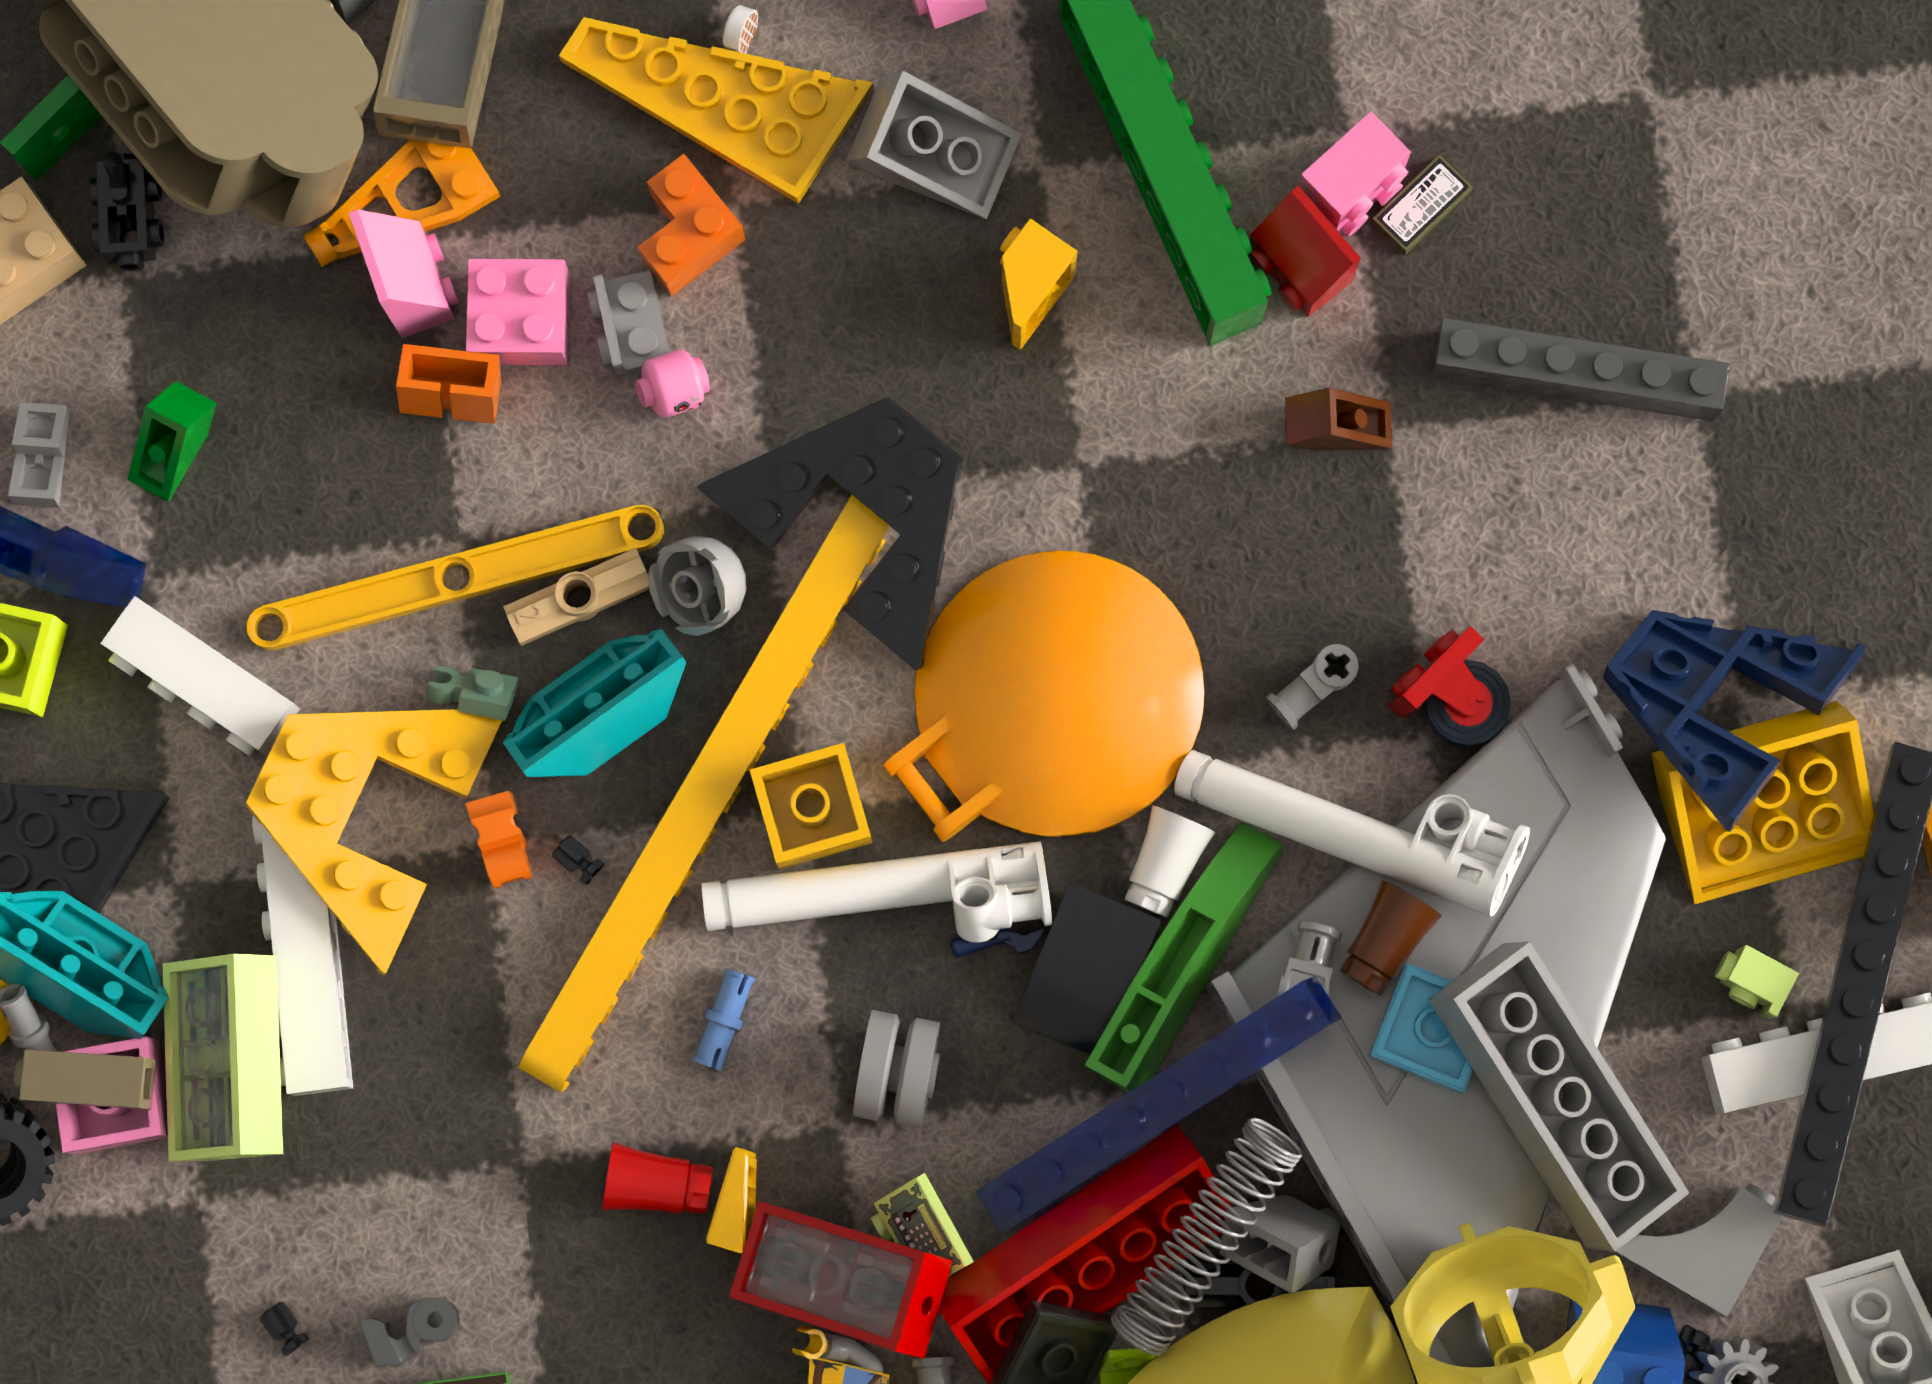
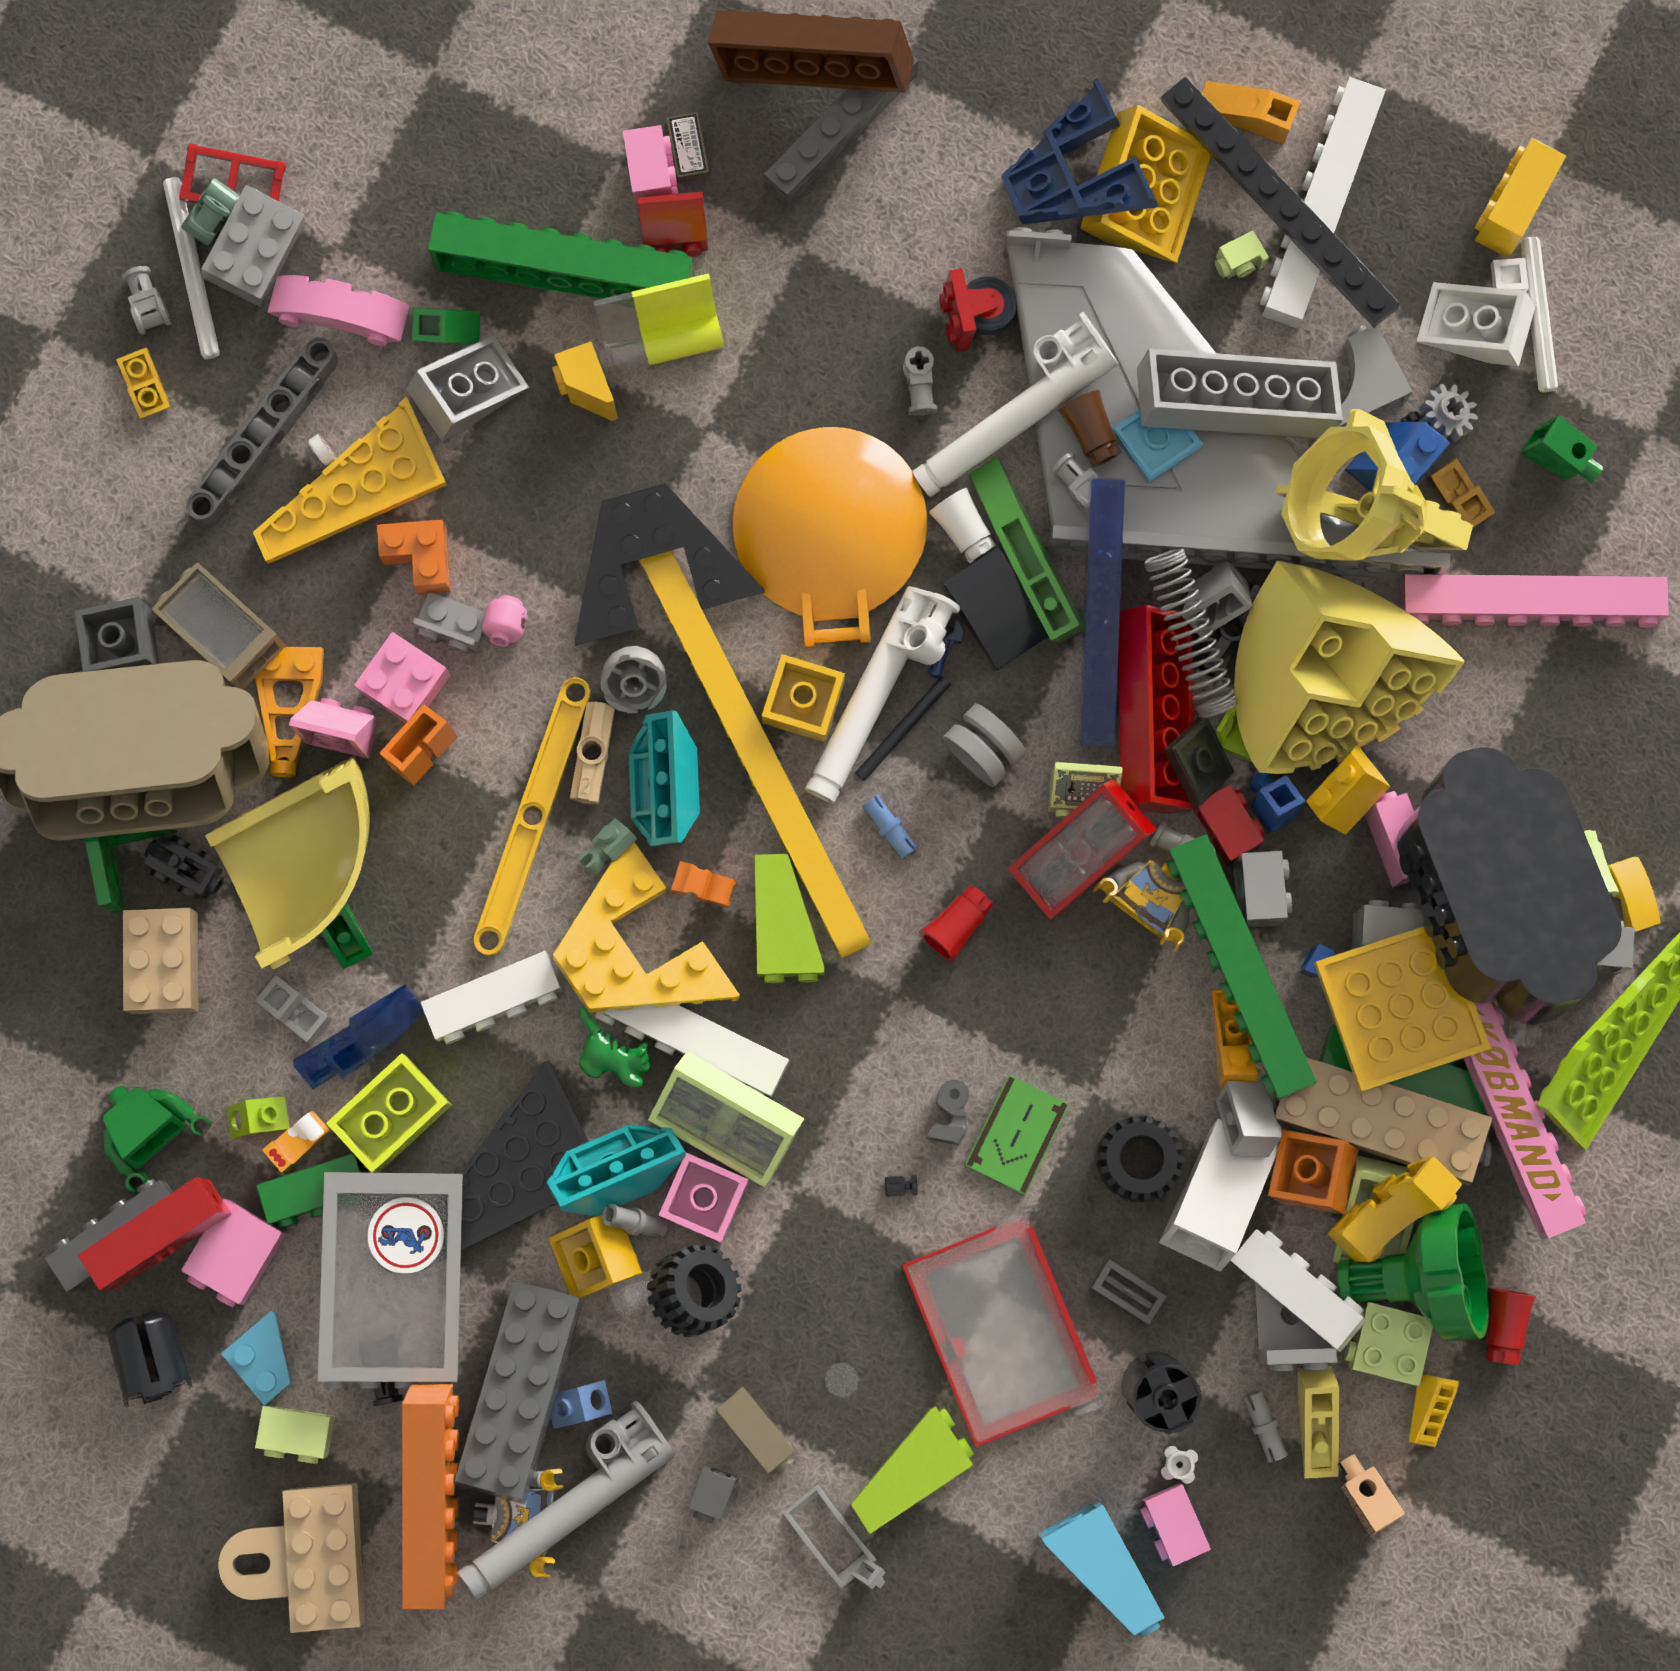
camera: 60 degrees left, 0 degrees up
(85, 1079) = (689, 1199): dark tan brick -> none
(214, 861) = (605, 1053): none -> green animal
(216, 337) = (297, 858): none -> light yellow panel
(514, 967) = (782, 924): none -> lime slope
(574, 856) = (740, 851): black piece -> none
(735, 1203) = (1006, 891): yellow slope -> none
(861, 953) = (903, 728): none -> black bar
(990, 67) = (445, 325): none -> green slope
(1160, 319) = (658, 324): none -> neon yellow door
(1337, 421) = (780, 272): reddish brown slope -> none
(1637, 270) = (811, 50): none -> reddish brown brick

